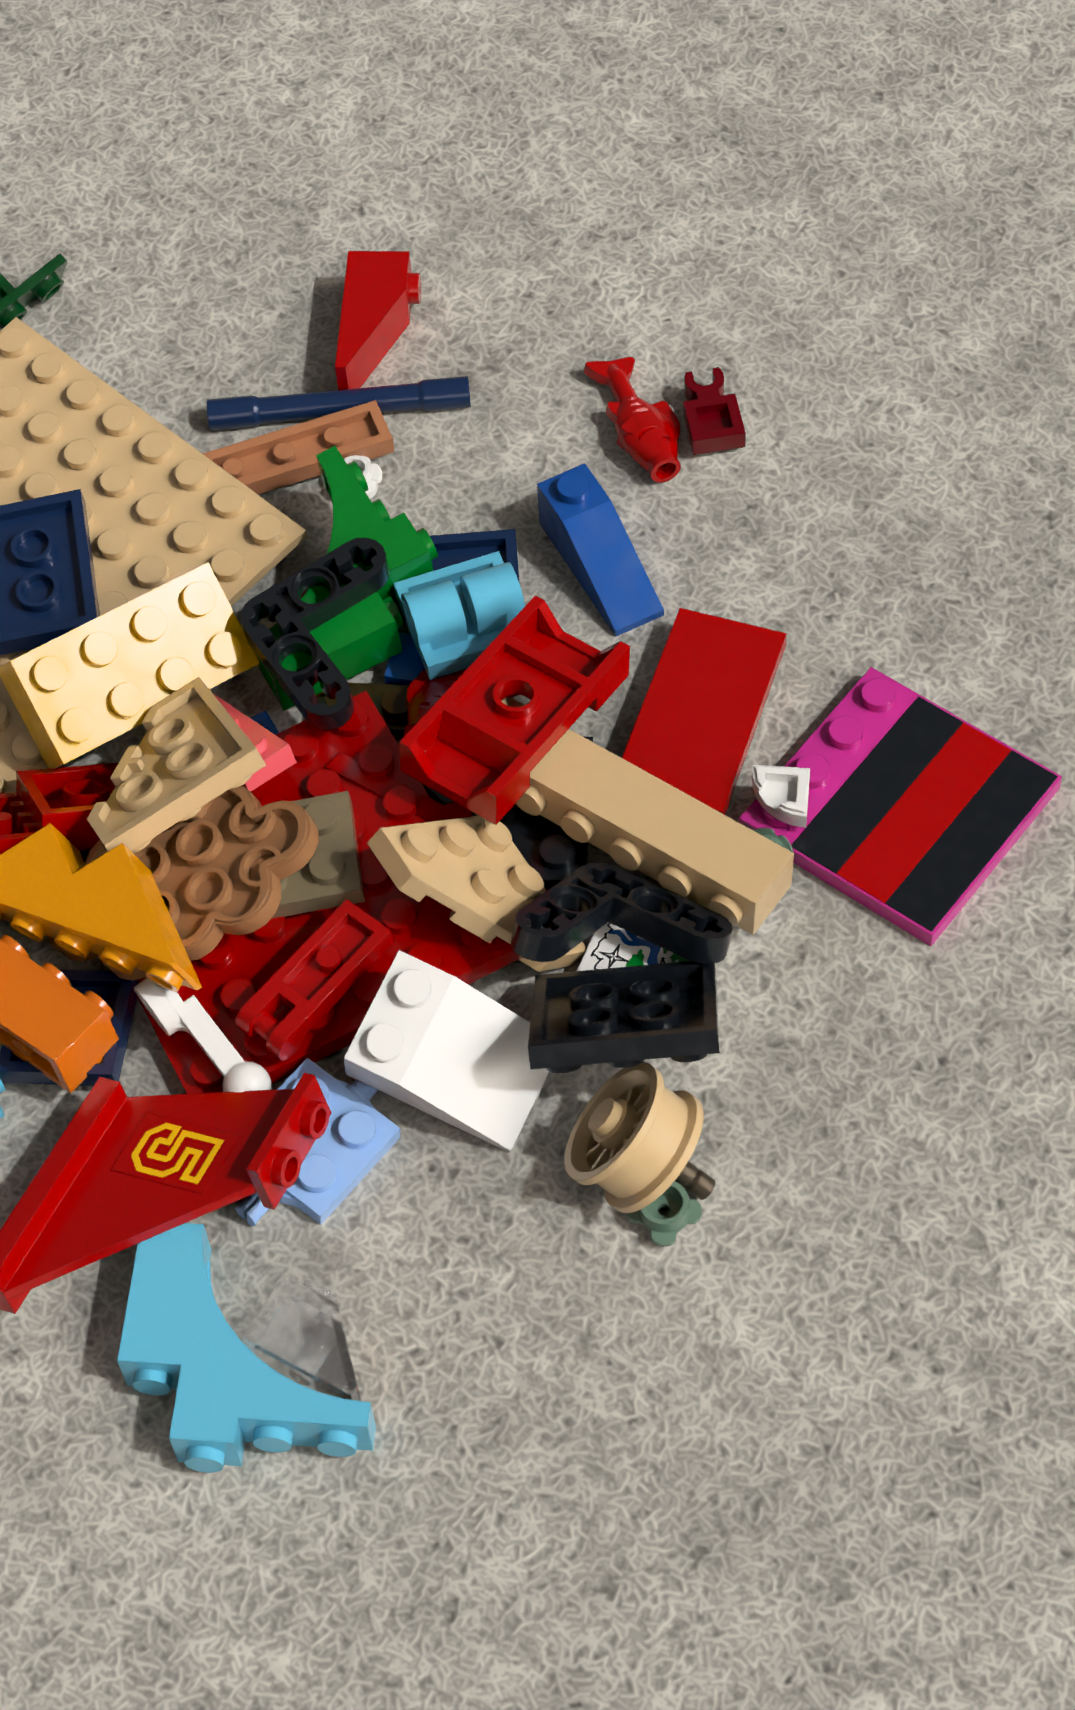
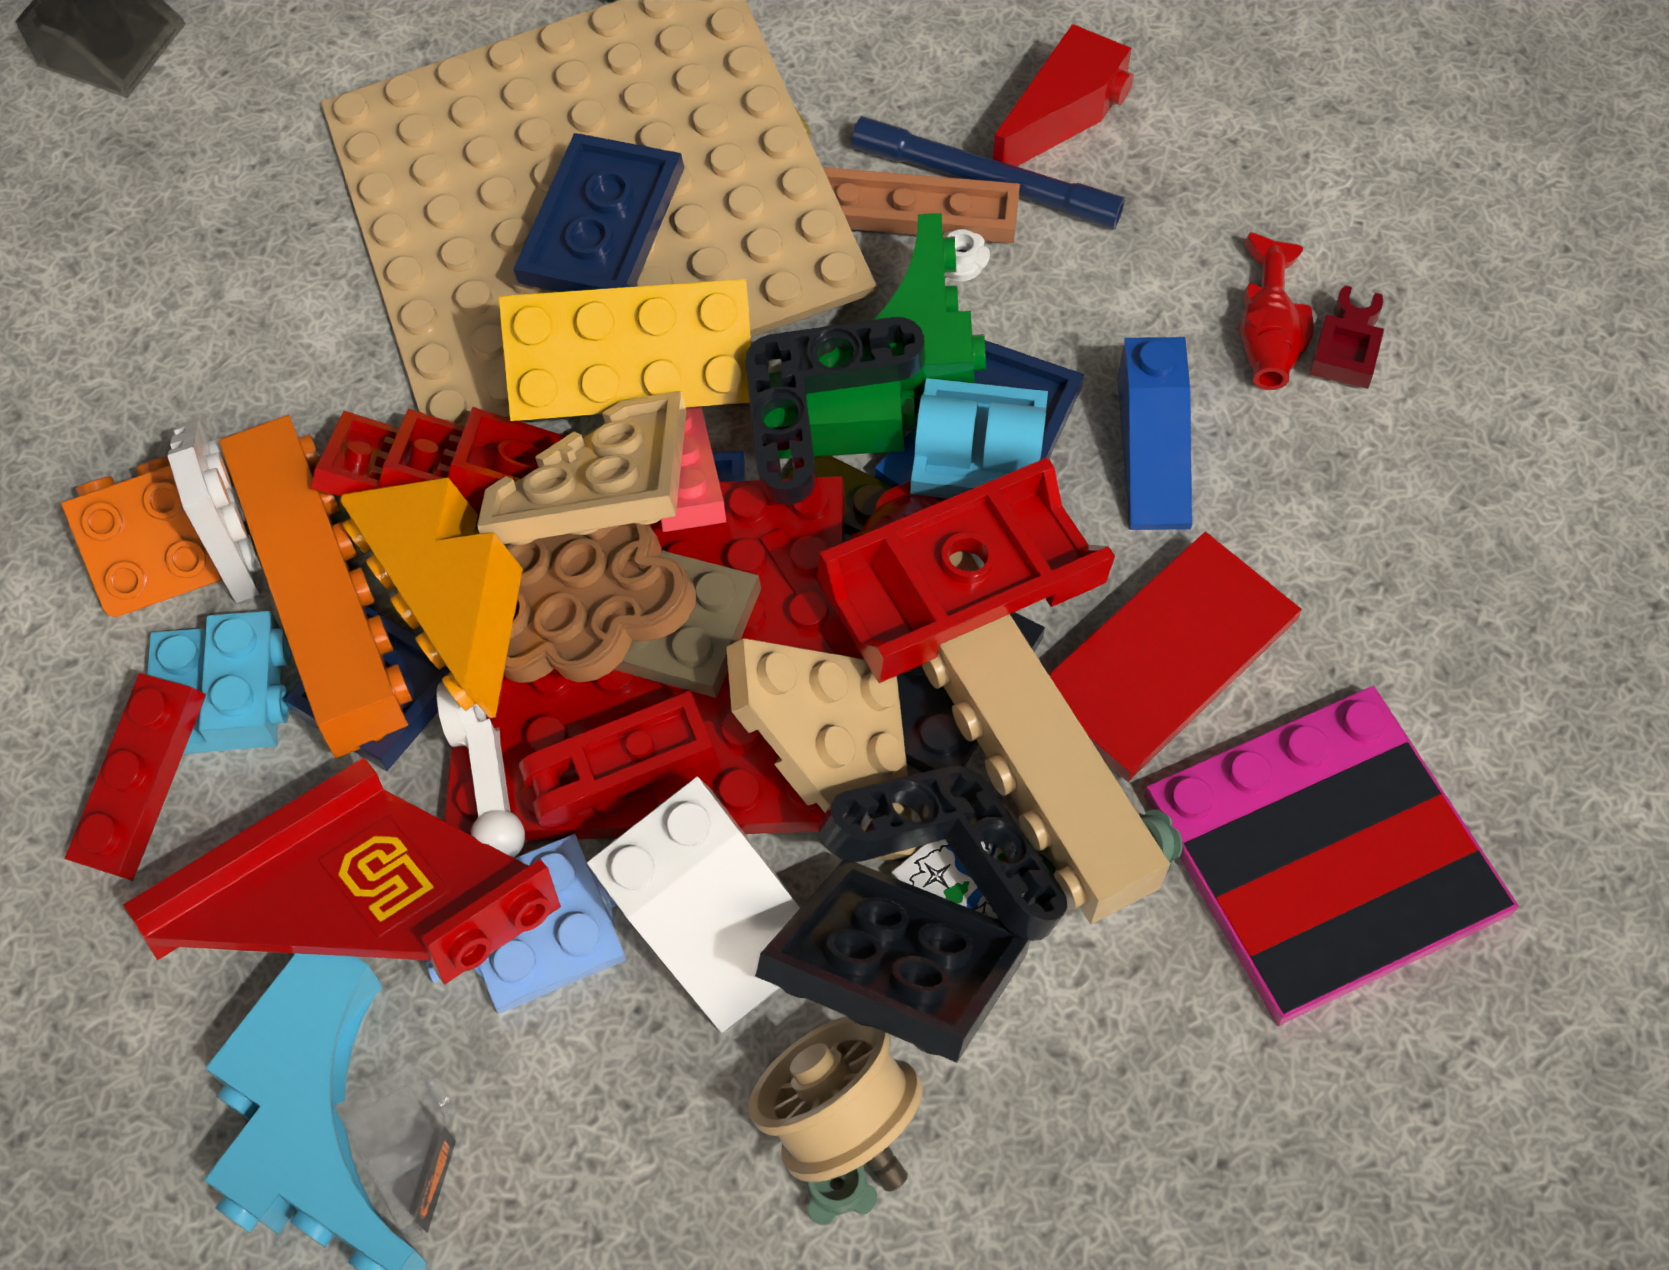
camera: 25 degrees right, 5 degrees up
(783, 792) = (1204, 783): white tile -> none

